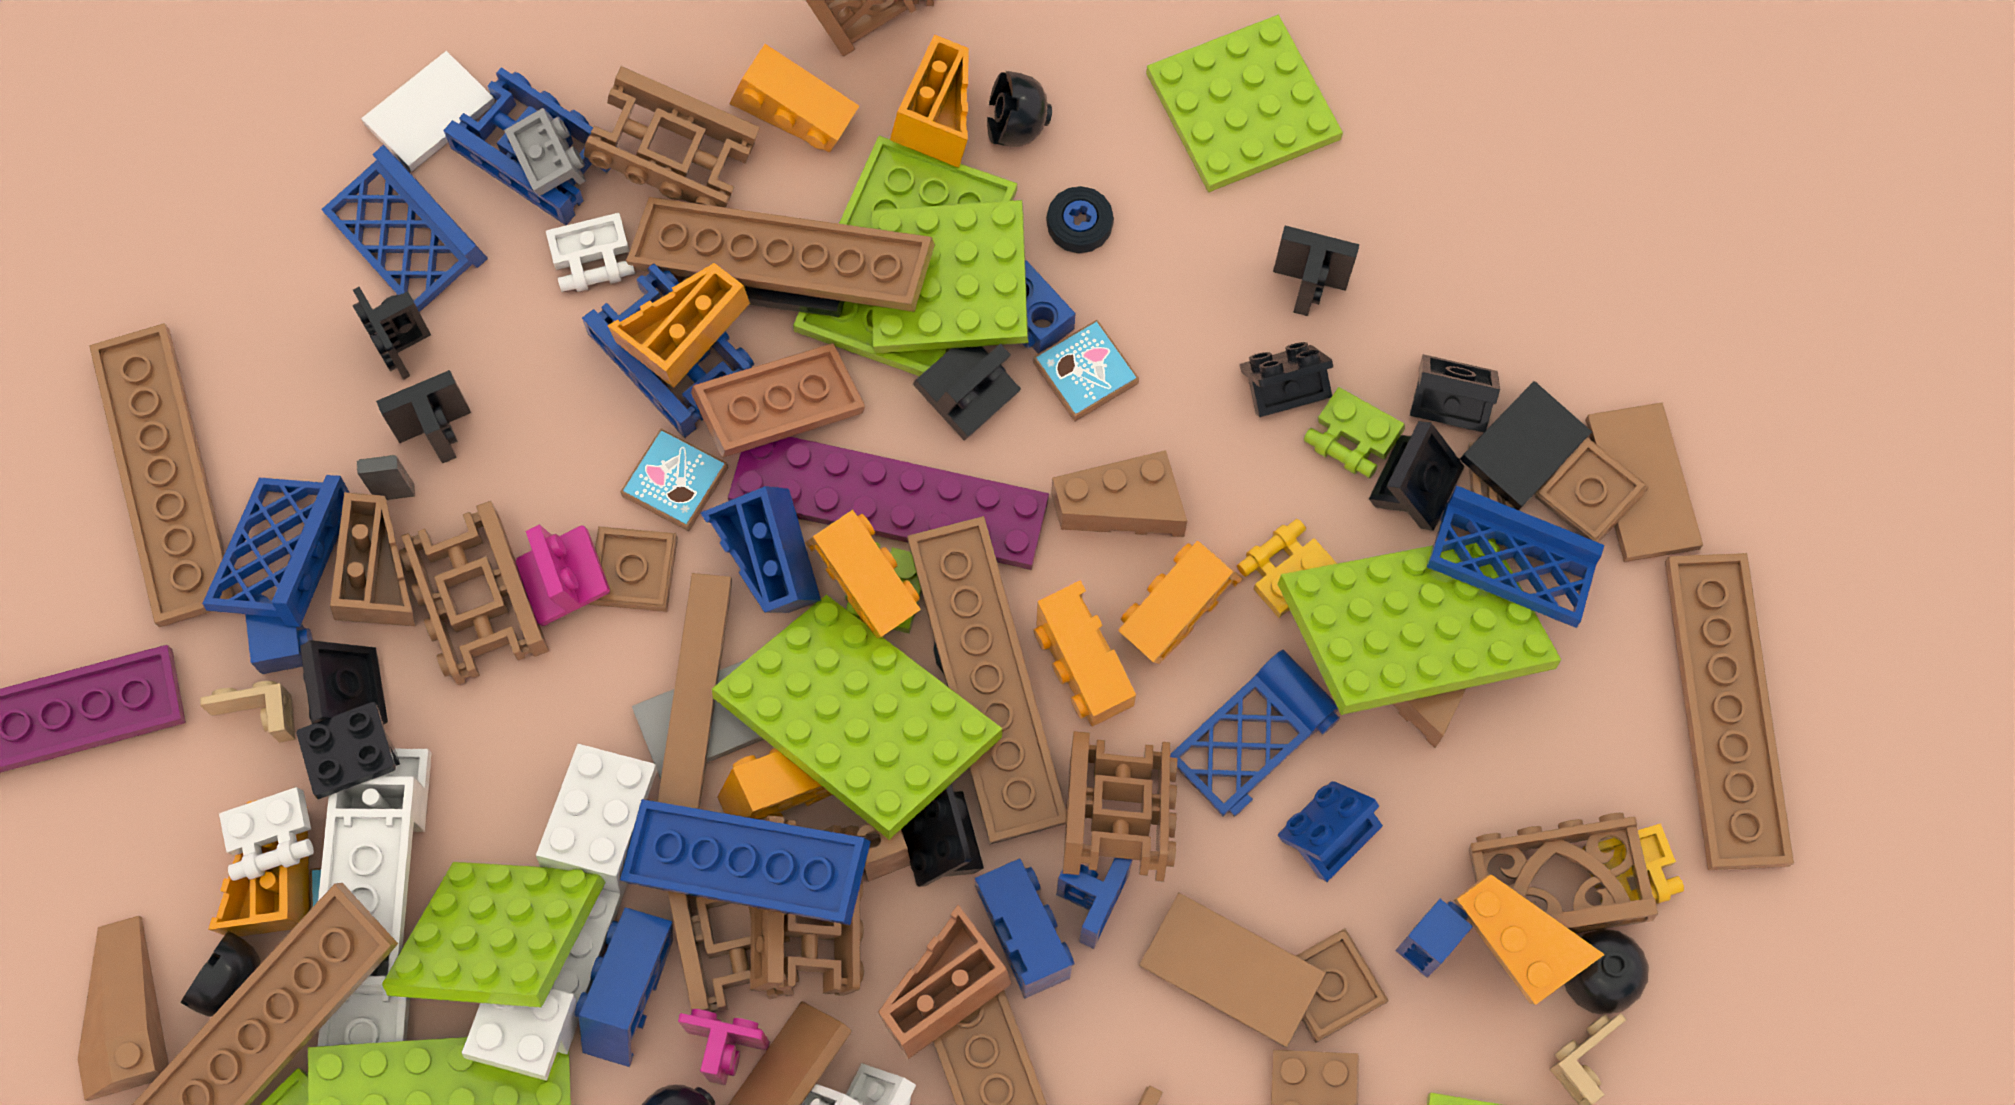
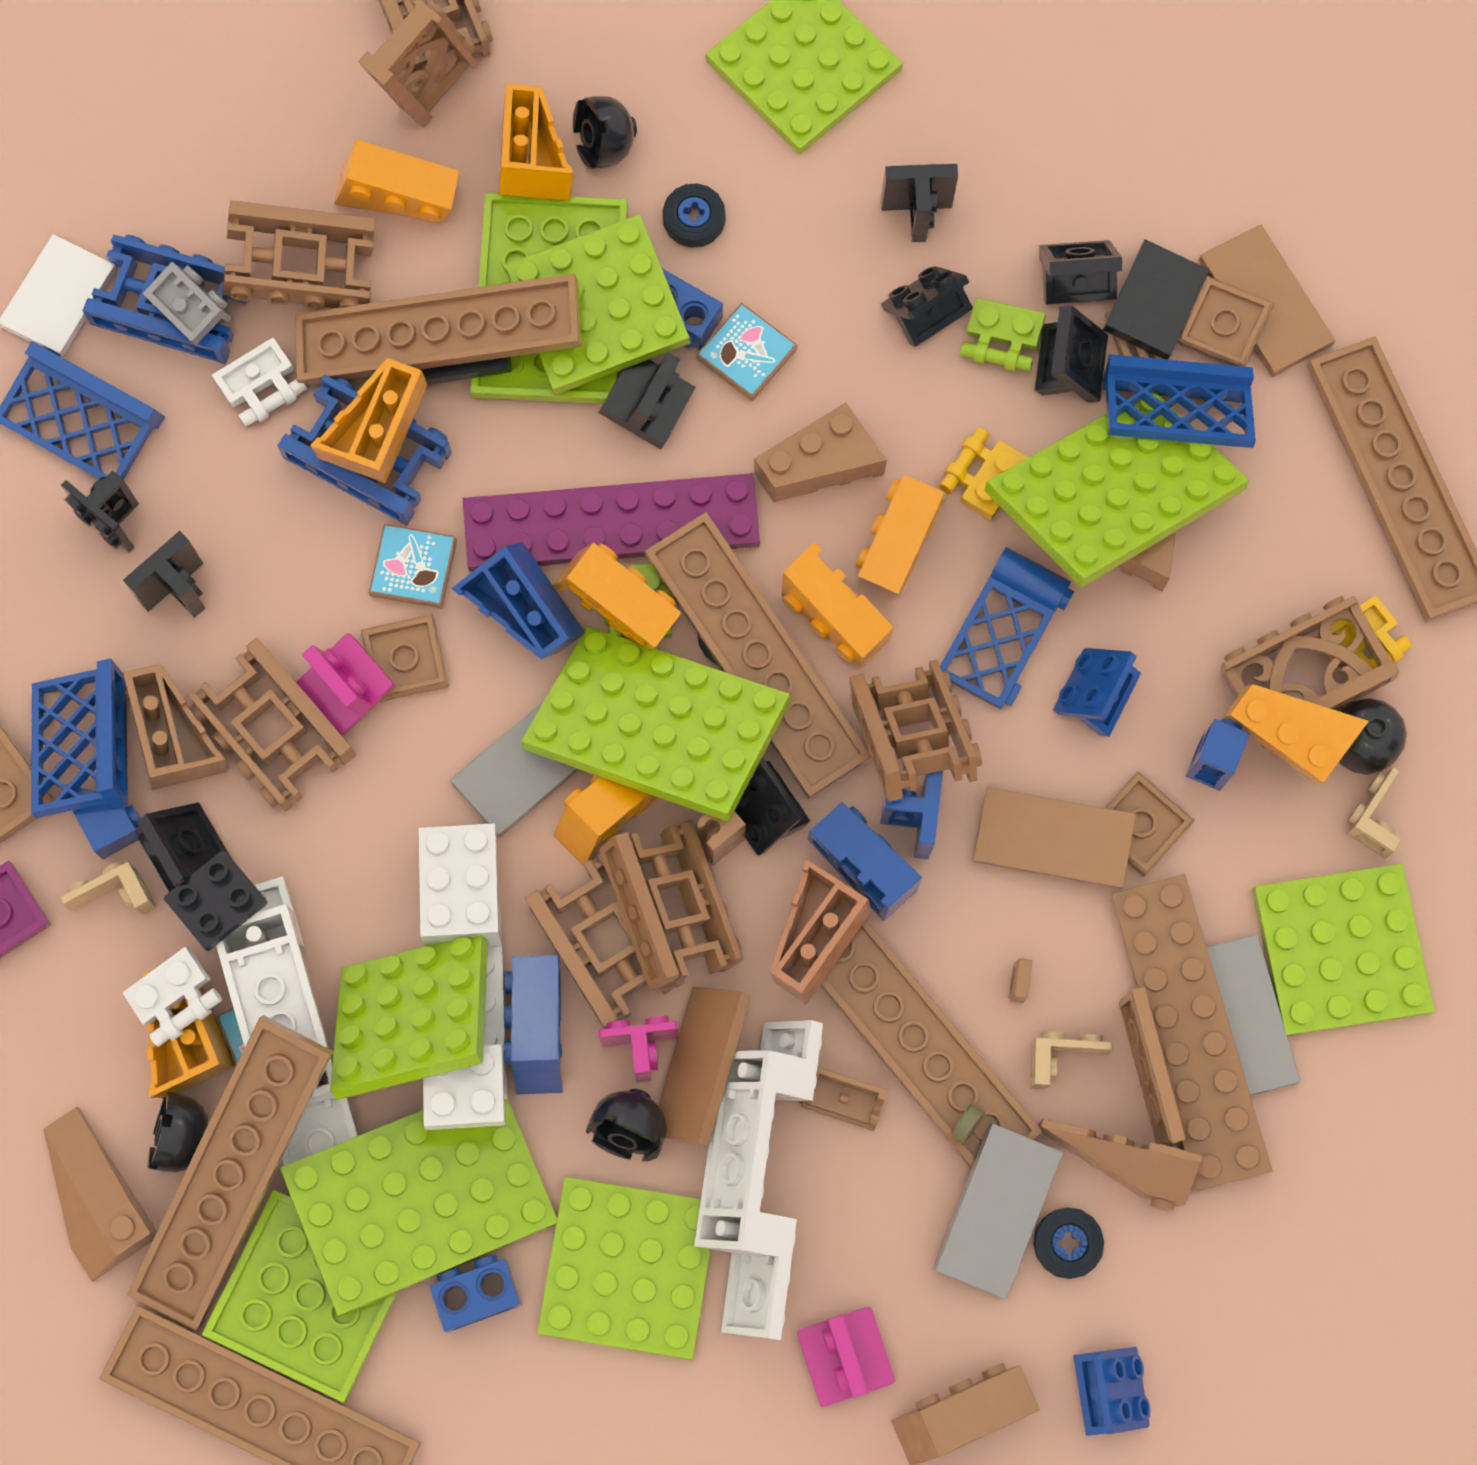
camera: 20 degrees left, 5 degrees up
(386, 477) = (153, 646): dark grey tile -> none
(692, 698) = (503, 749): medium nougat tile -> none
(746, 861) = (609, 881): blue plate -> none
(777, 400) = (482, 464): nougat plate -> none

